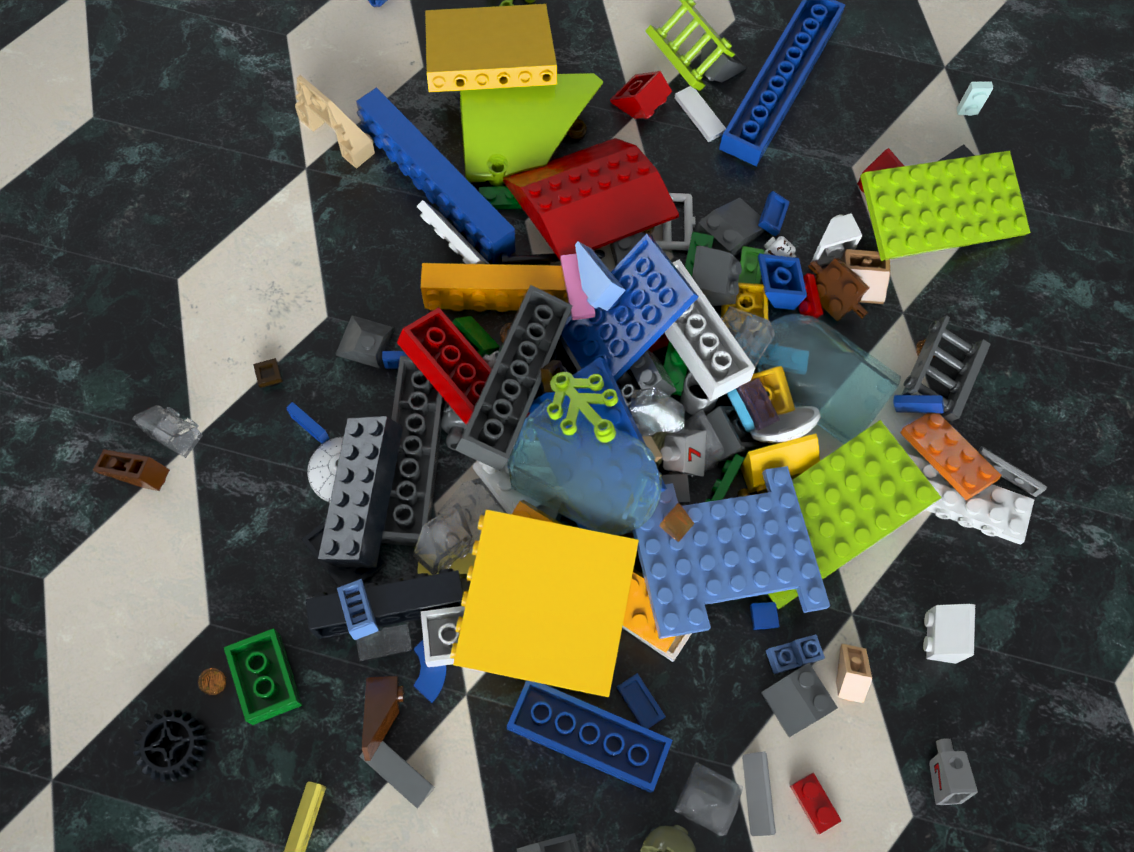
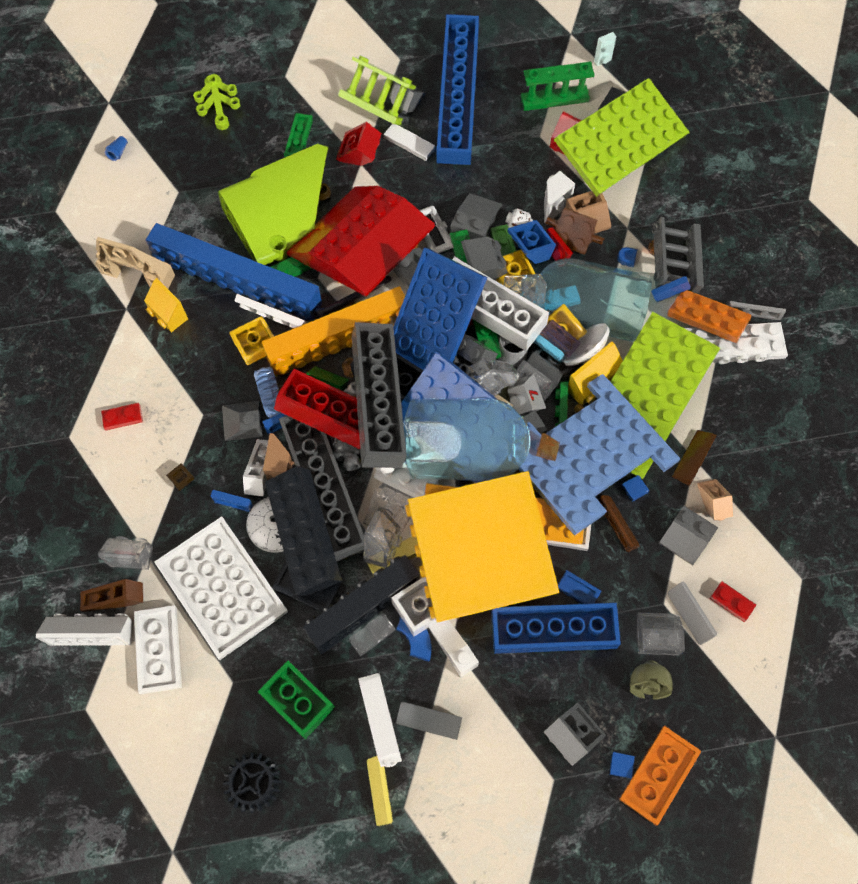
camera: 20 degrees left, 0 degrees up
(85, 493) = (86, 630): none -> white slope
(148, 550) = (157, 650): none -> white plate
(212, 681) = (257, 722): clear orange tile -> none
(242, 281) = (122, 416): none -> red plate
(248, 514) = (221, 588): none -> white plate
(338, 745) = (380, 720): none -> white slope
(343, 182) = (164, 306): none -> yellow slope
(354, 399) = (254, 477): none -> white slope
(363, 624) = (355, 625): medium blue slope -> none
(375, 398) = (276, 459): none -> medium nougat slope
(380, 710) = (396, 680): reddish brown slope -> none
(406, 310) = (267, 389): none -> medium blue gear
(414, 248) = (243, 337): none -> yellow brick
(465, 702) = (454, 647): none -> white slope
(489, 48) = (227, 156): yellow brick -> none
(548, 372) = (406, 382): dark brown plate -> none
(581, 308) = (388, 308): bright pink tile -> none
(581, 402) = (439, 390): lime plant -> none
(582, 55) = (298, 134): none -> green plate
(597, 279) = (402, 298): light blue slope -> none
(724, 647) = (619, 524): none -> reddish brown slope
(773, 213) = (501, 194): blue tile -> none
(795, 654) = (669, 505): medium blue slope -> none
(852, 610) = (694, 457): none -> reddish brown slope
(886, 344) = (627, 256): none -> blue tile
(895, 131) = (561, 96): none -> green fence
(950, 632) = (768, 440): white slope -> none
(951, 775) = (815, 538): light grey torso -> none

